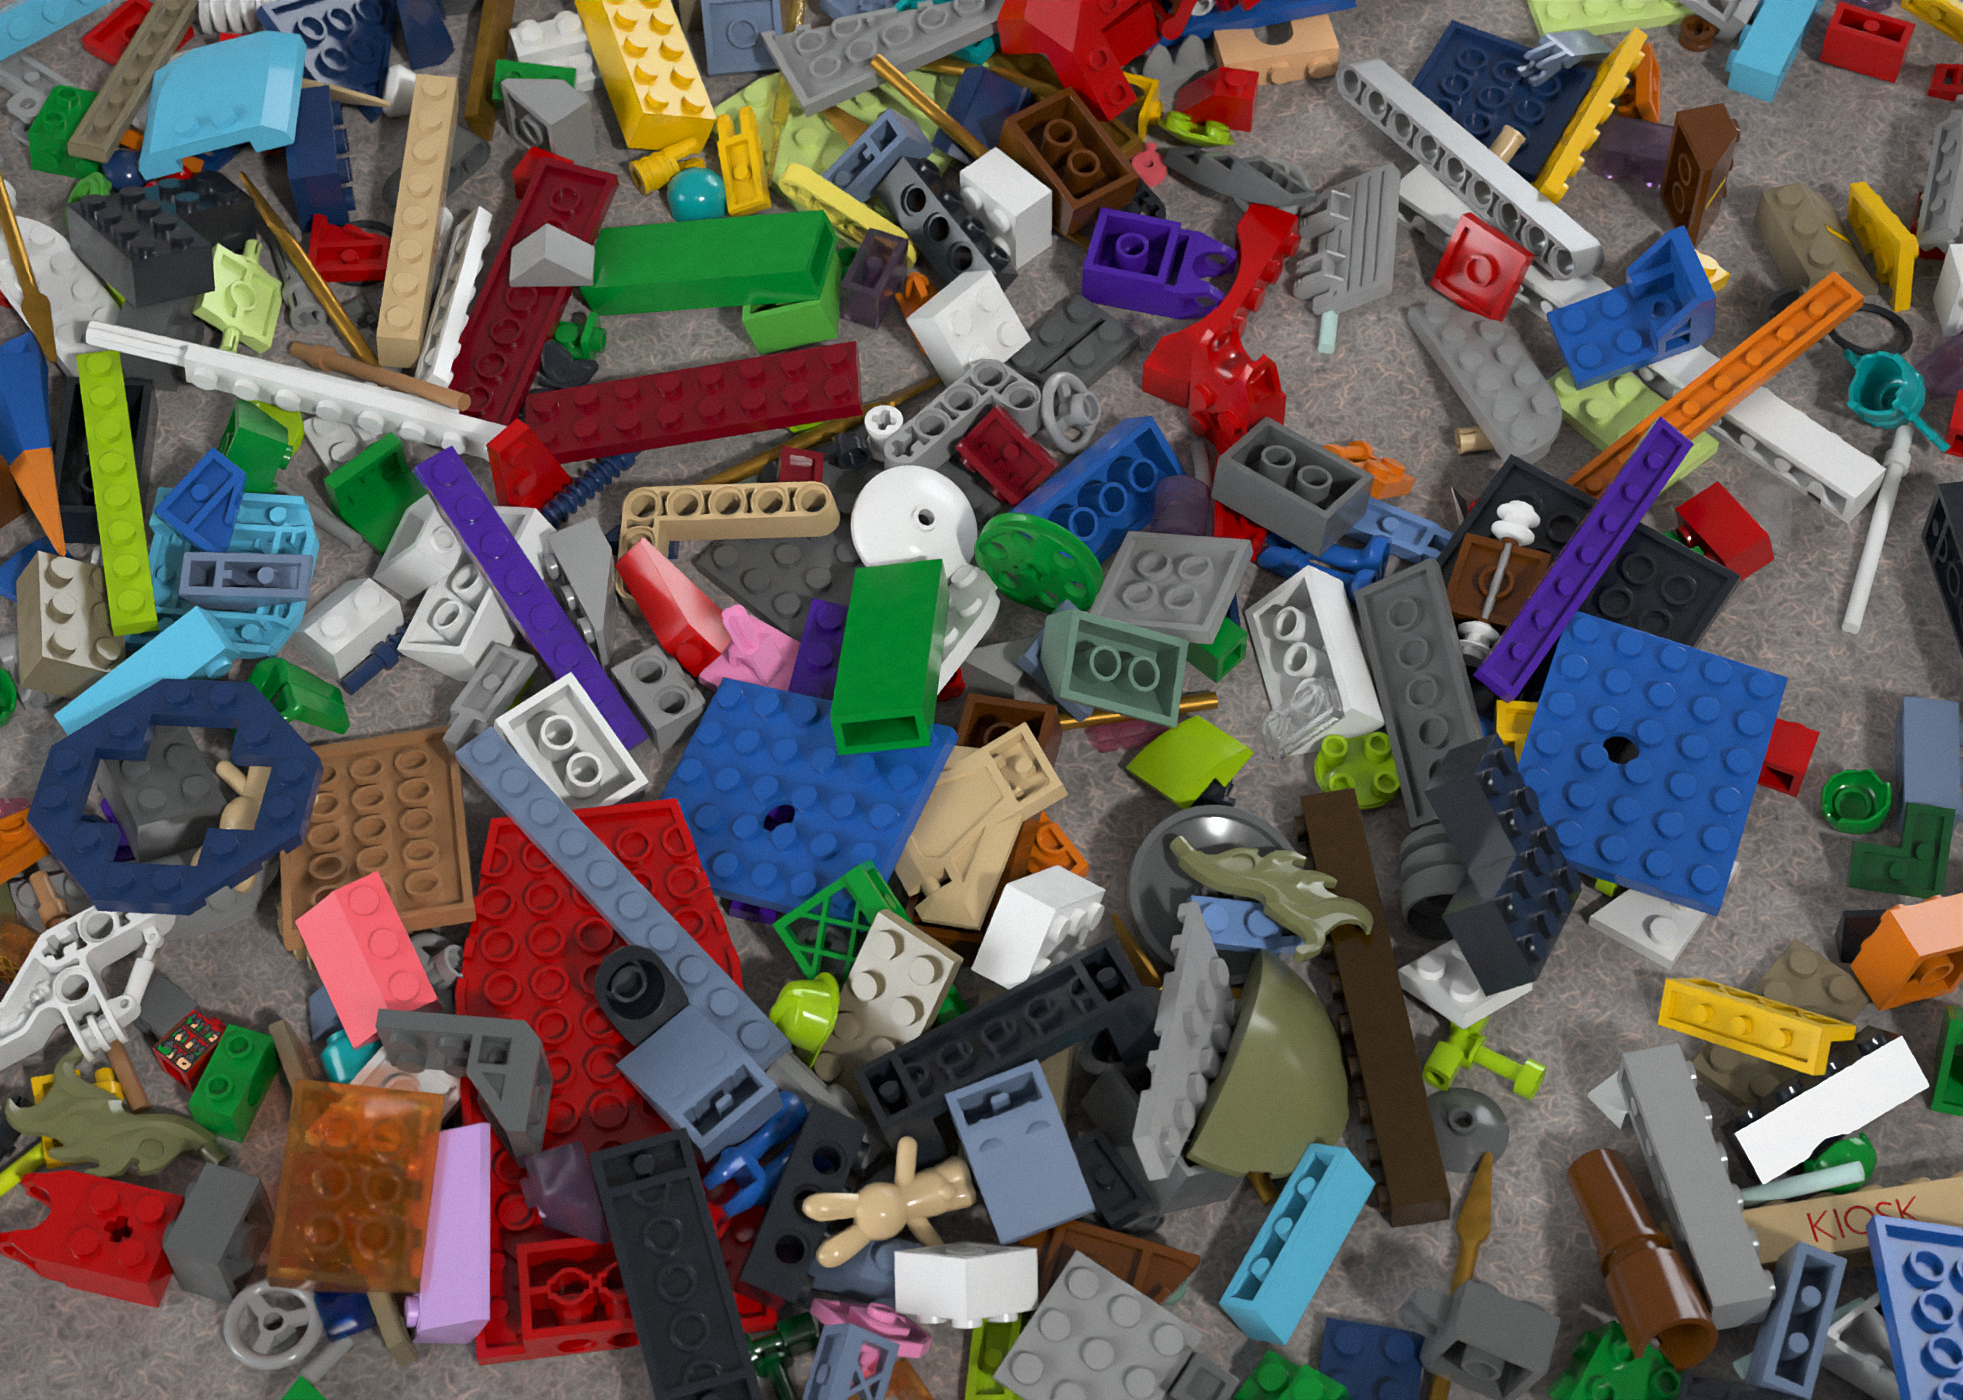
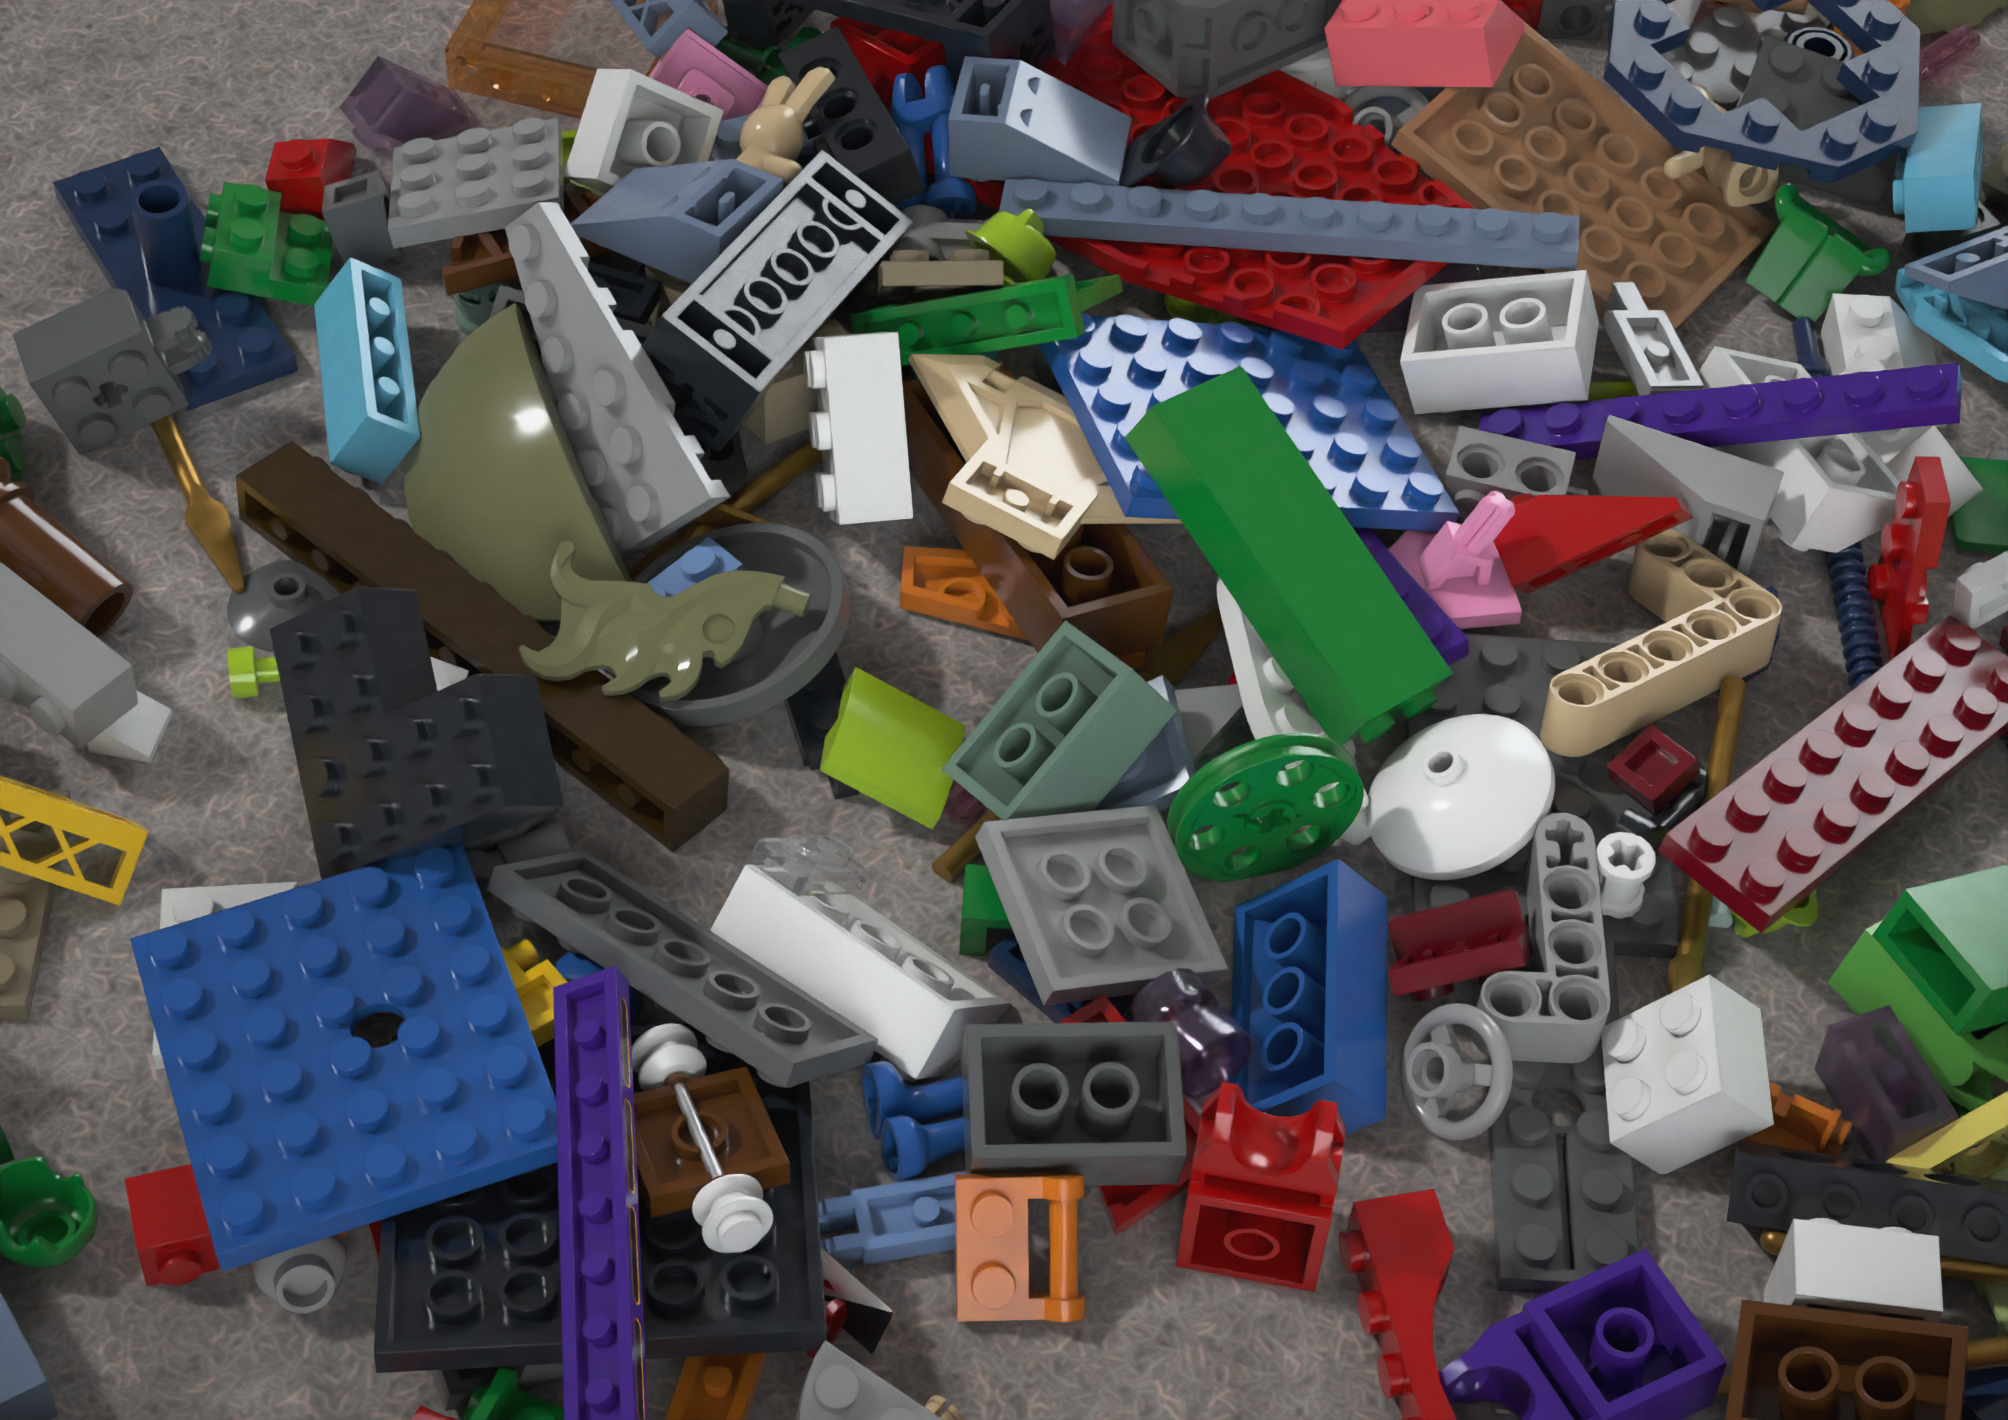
camera: 135 degrees right, 5 degrees down
(1360, 764) = (695, 872): lime dish -> none

